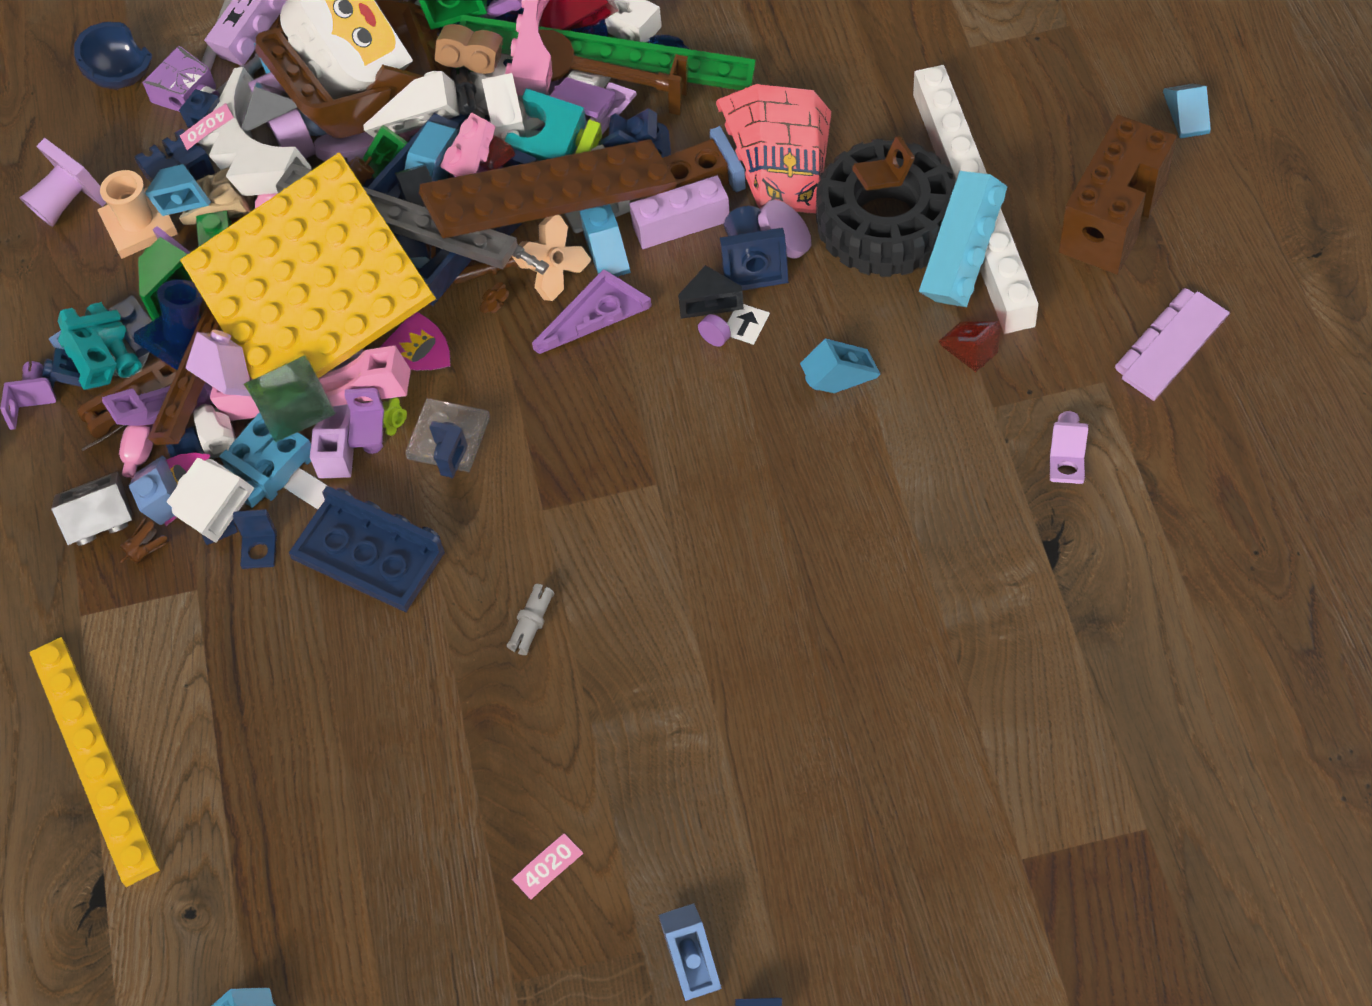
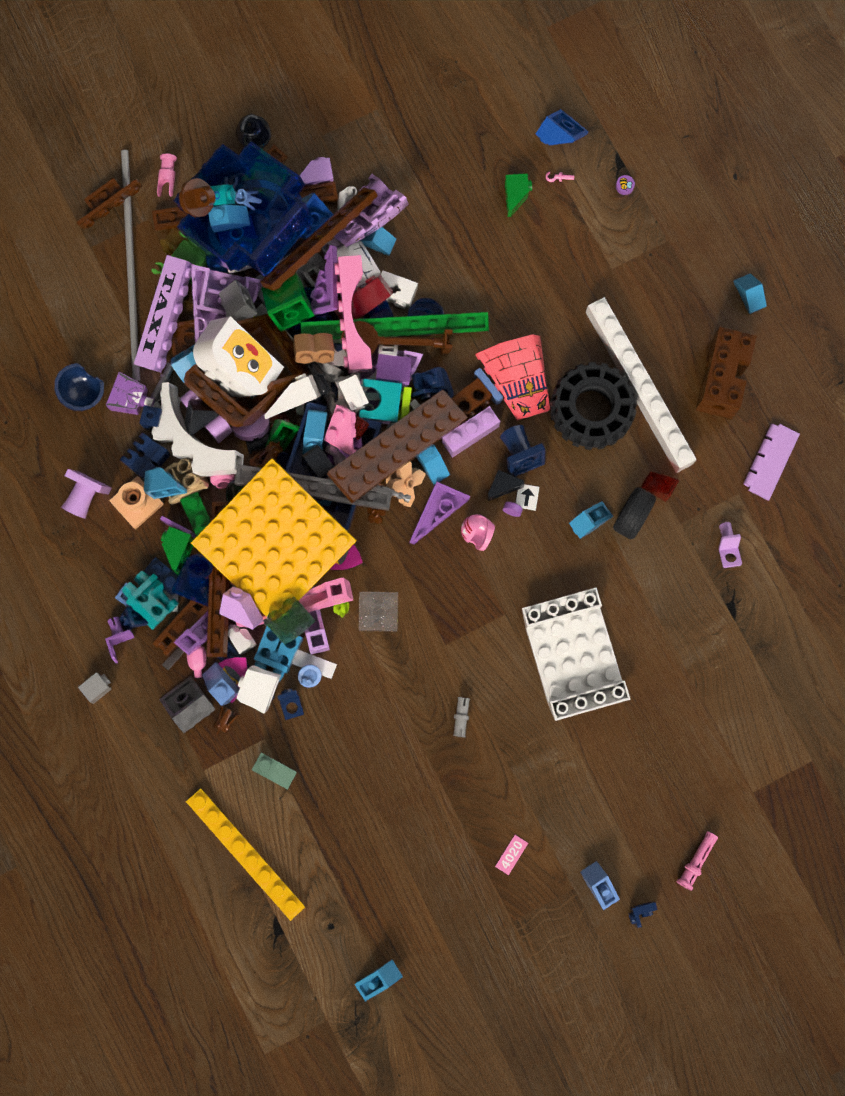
camera: 25 degrees left, 20 degrees up
(188, 633) = (274, 771): none -> sand green slope
(206, 126) = (163, 430): bright pink sticker -> none
(301, 504) = (309, 675): none -> medium blue hat
(365, 420) = (333, 620): medium lavender bracket -> none
(368, 548) = (357, 695): dark blue bracket -> none
(449, 448) = (387, 628): dark blue bracket -> none
(645, 345) = (478, 531): none -> bright pink helmet
(753, 554) = (574, 654): none -> white slope
(778, 215) = (537, 432): lavender tile -> none
(873, 962) = (693, 868): none -> bright pink pin
(885, 172) = (592, 392): reddish brown bracket -> none
(912, 360) = (634, 513): none -> black tyre
(963, 238) = (646, 425): medium azure brick -> none

